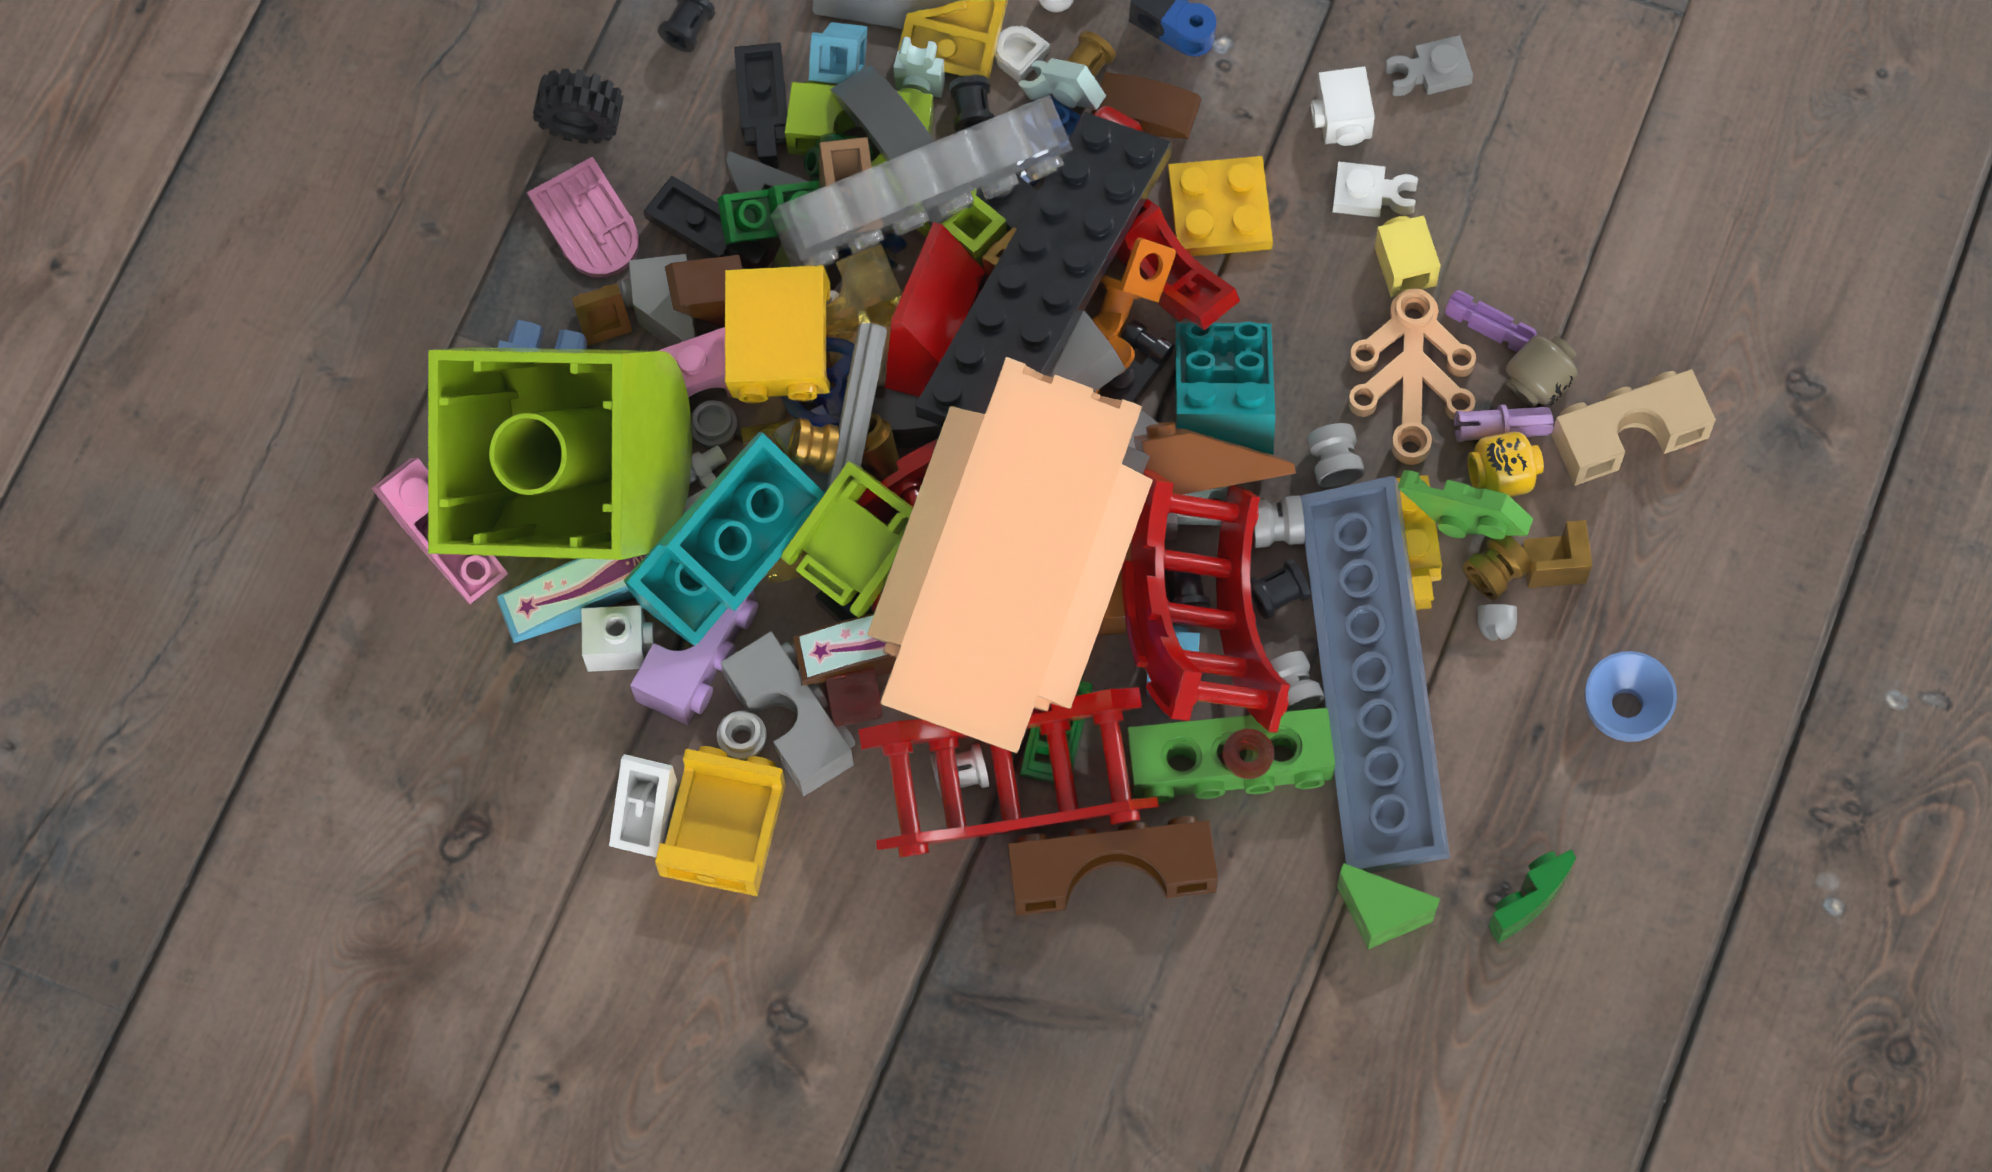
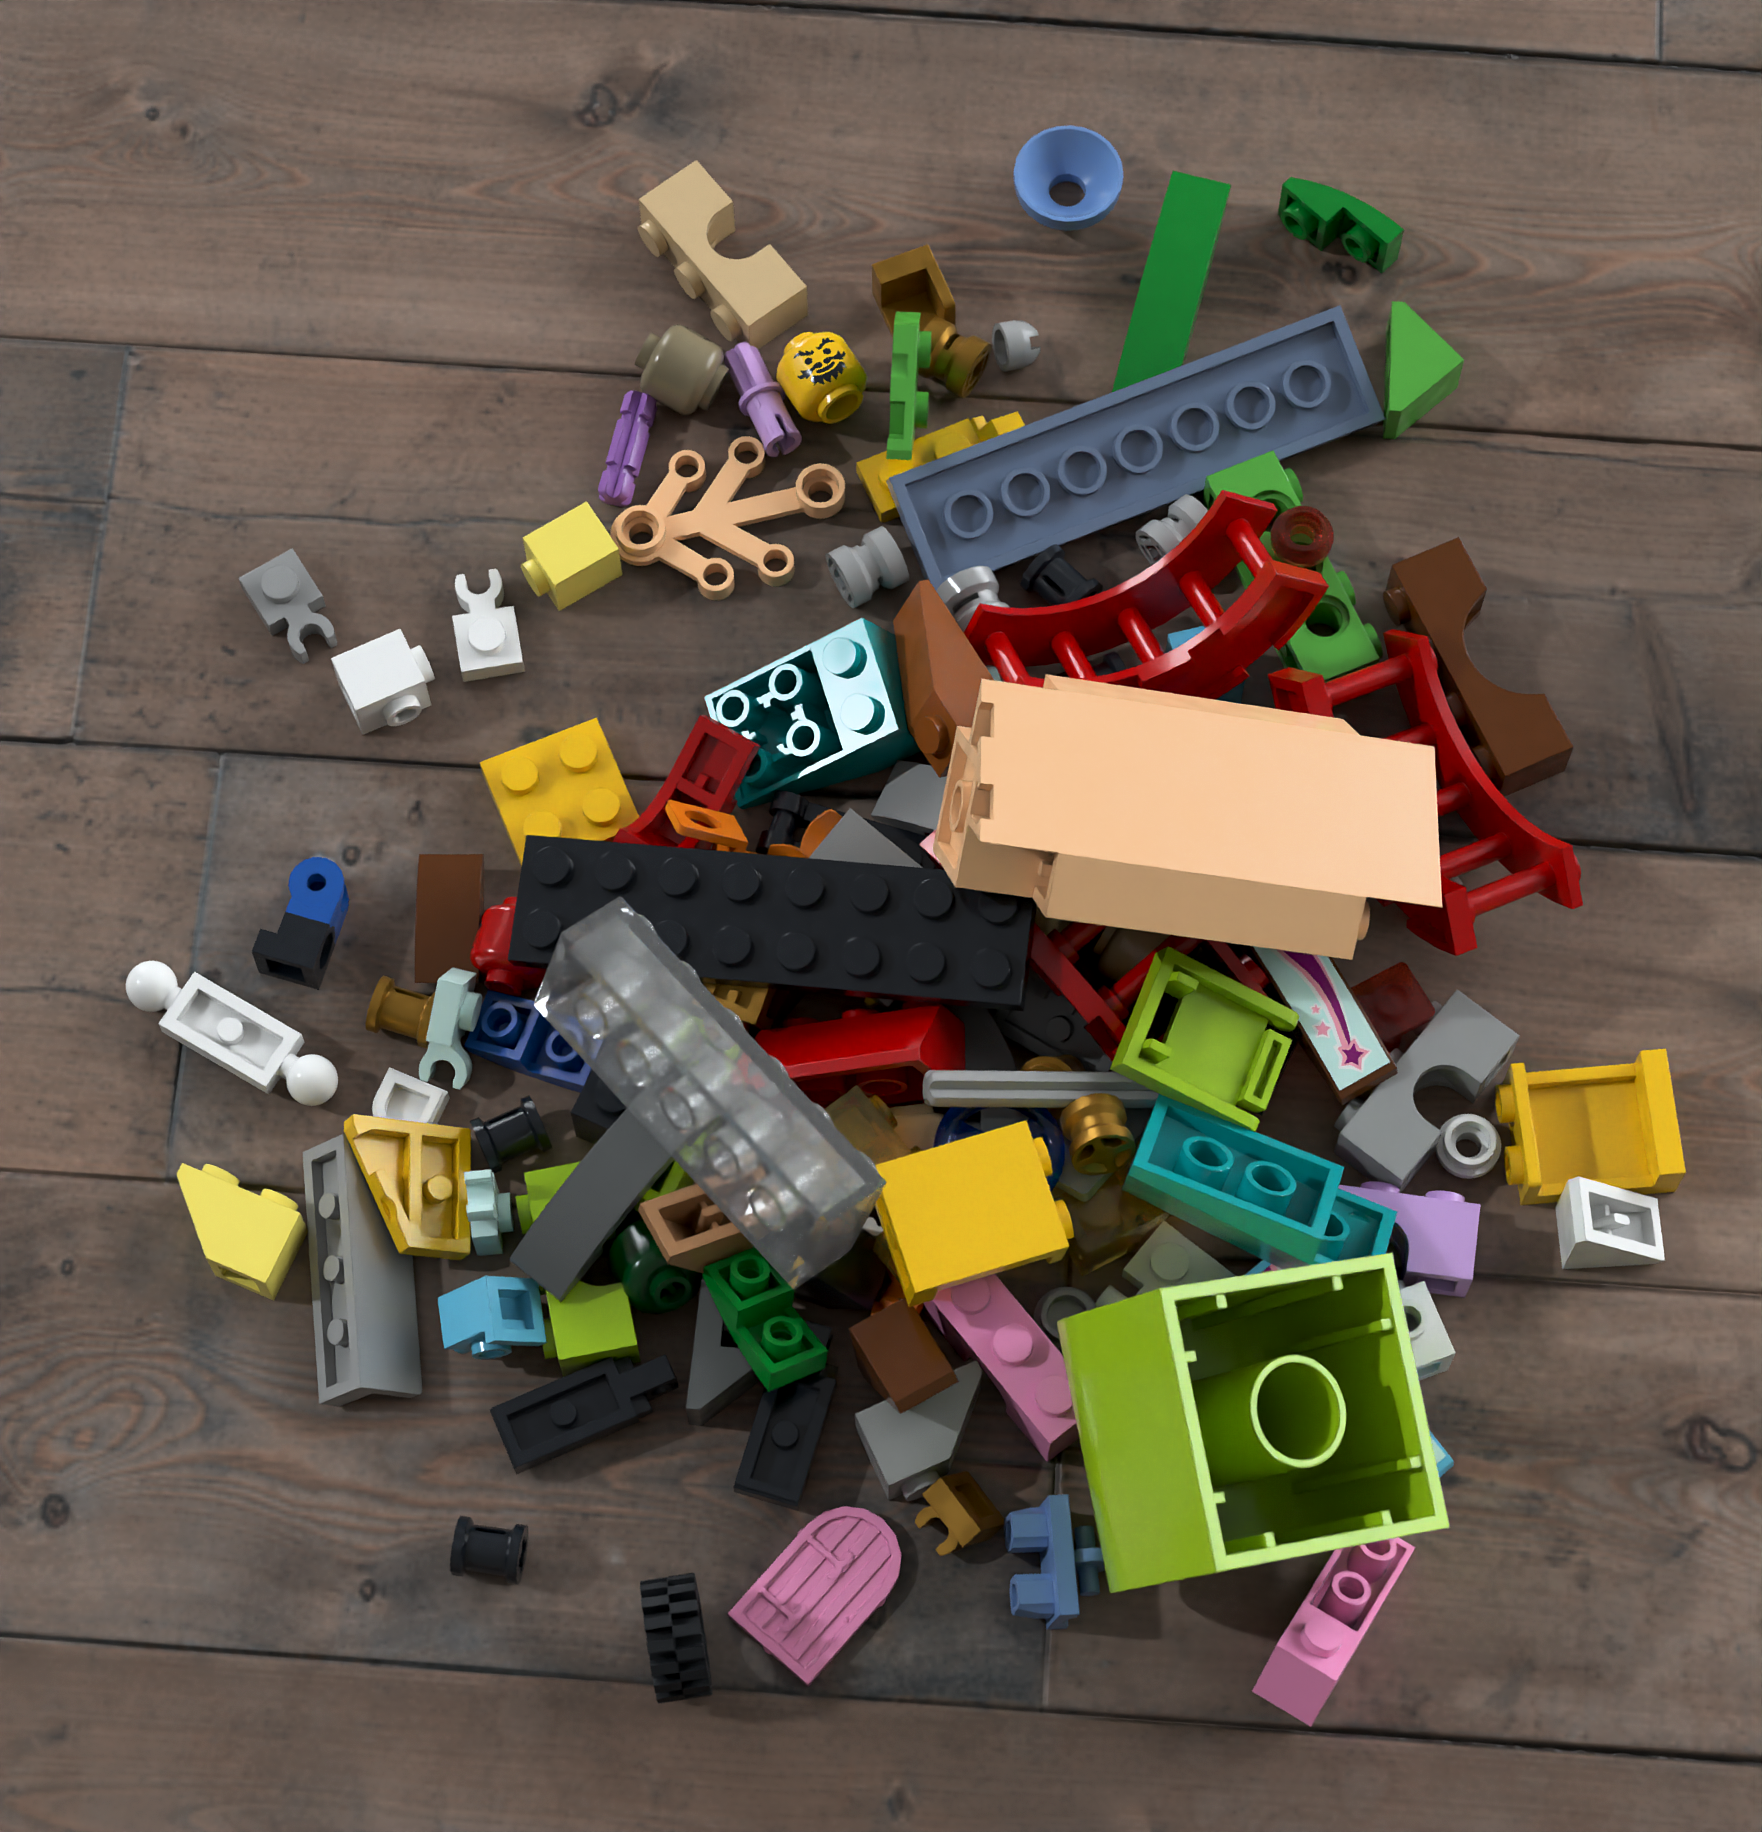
camera: 110 degrees left, 0 degrees up
(1514, 748) = (1173, 278): none -> green slope

